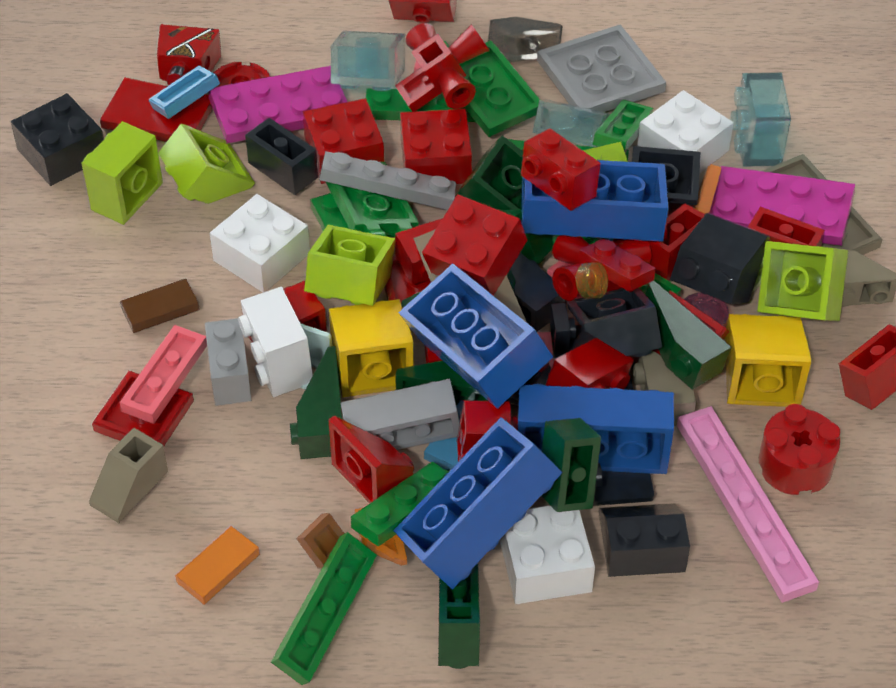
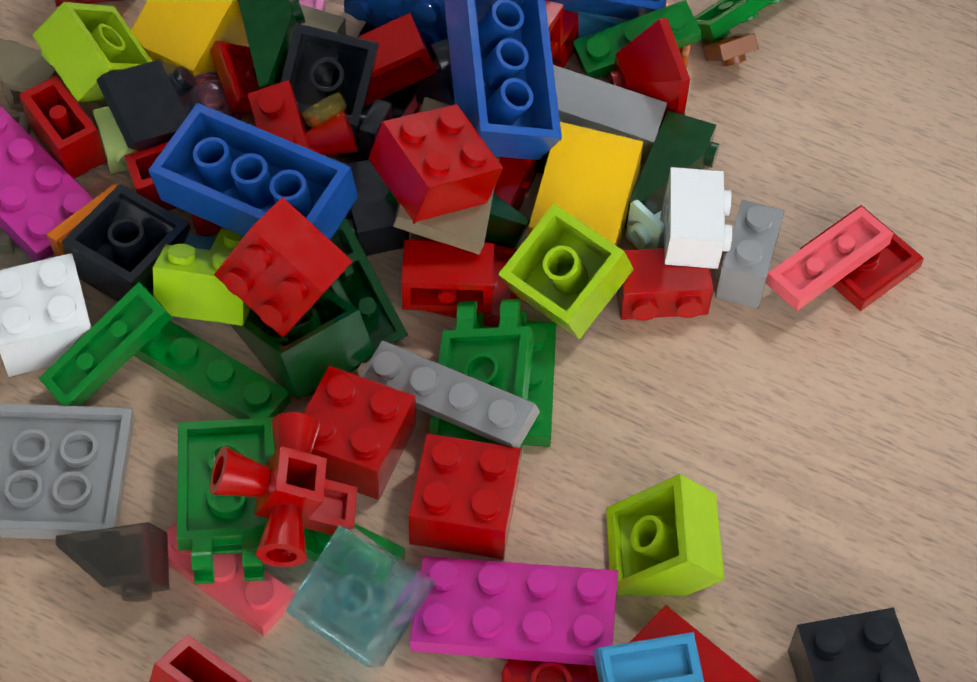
camera: 155 degrees left, 5 degrees up
(122, 172) = (789, 547): lime brick -> none
(128, 475) = (899, 172): dark tan slope -> none
(159, 305) = (797, 376): reddish brown tile -> none
(217, 565) = (838, 77): orange tile -> none
(260, 243) = (647, 388): white brick -> none
(281, 156) = (562, 494): black brick -> none
(505, 137) = (282, 267): none -> red brick
(560, 169) = (292, 157): red brick -> none
(569, 121) = (162, 384): clear light blue brick -> none

